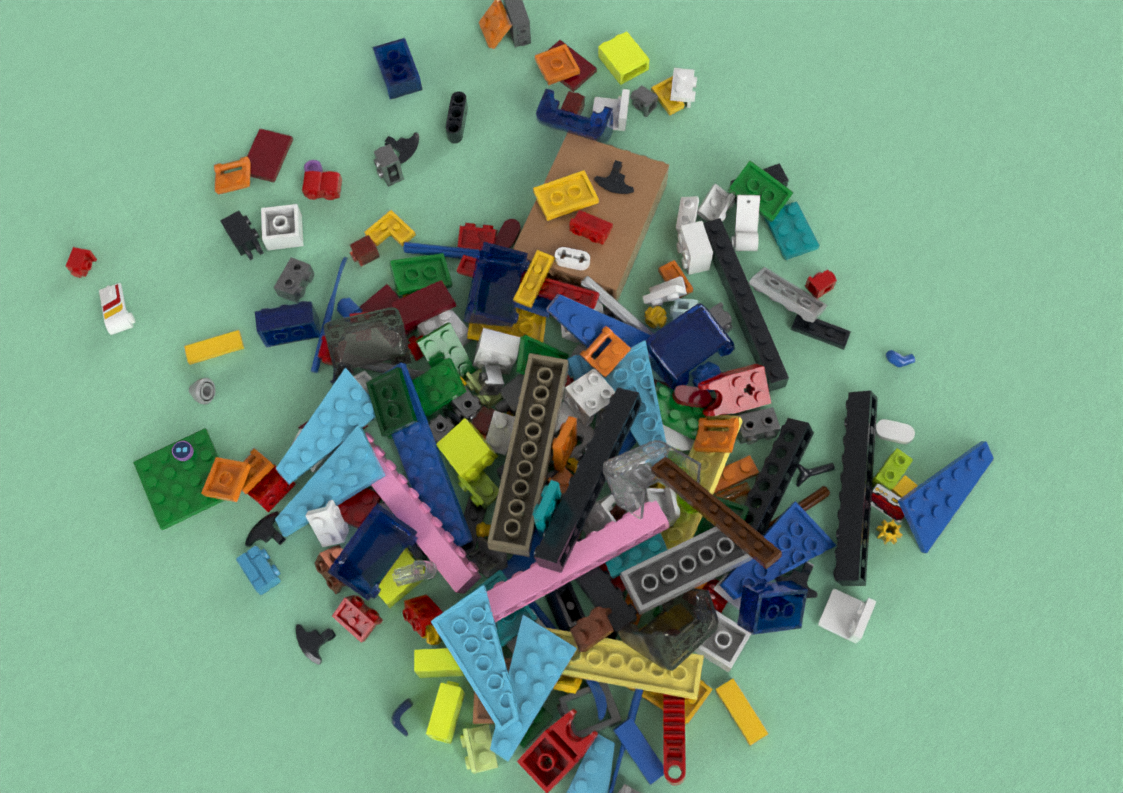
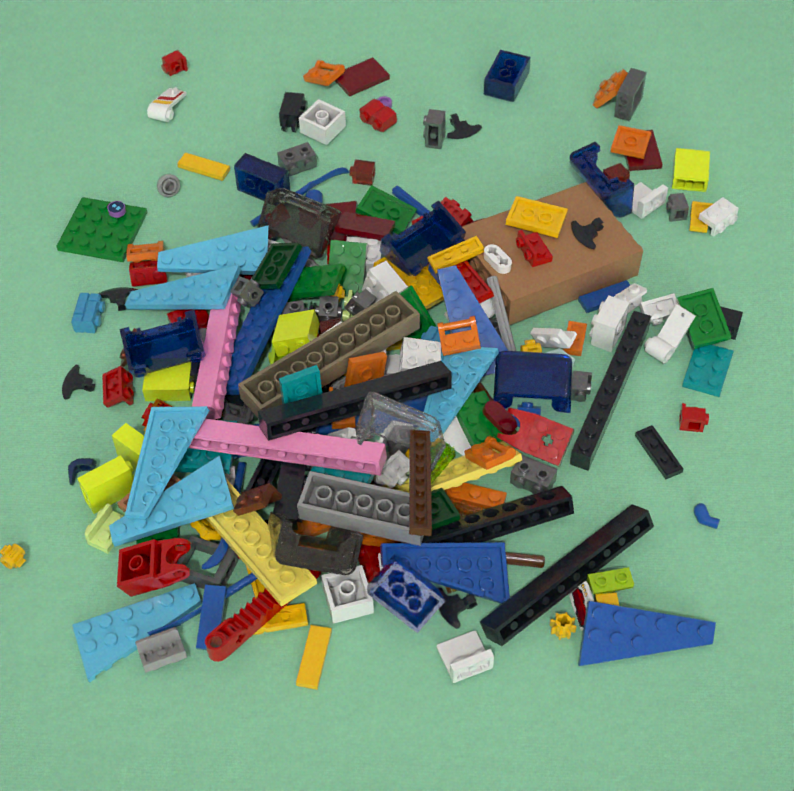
camera: 40 degrees right, 15 degrees down
(226, 479) = (123, 241): orange plate -> none
(328, 524) = (158, 311): white bracket -> none
(388, 226) = (397, 168): yellow plate -> none
(391, 445) = (247, 292): none -> flat silver brick
(414, 572) = (178, 378): clear piece -> none
(457, 108) = (519, 131): black beam -> none
(662, 223) = (592, 301): none -> blue tile
(788, 295) = (654, 405): light grey plate -> none
(806, 473) = (538, 537): black piece -> none
(894, 431) = (645, 563): white tile -> none

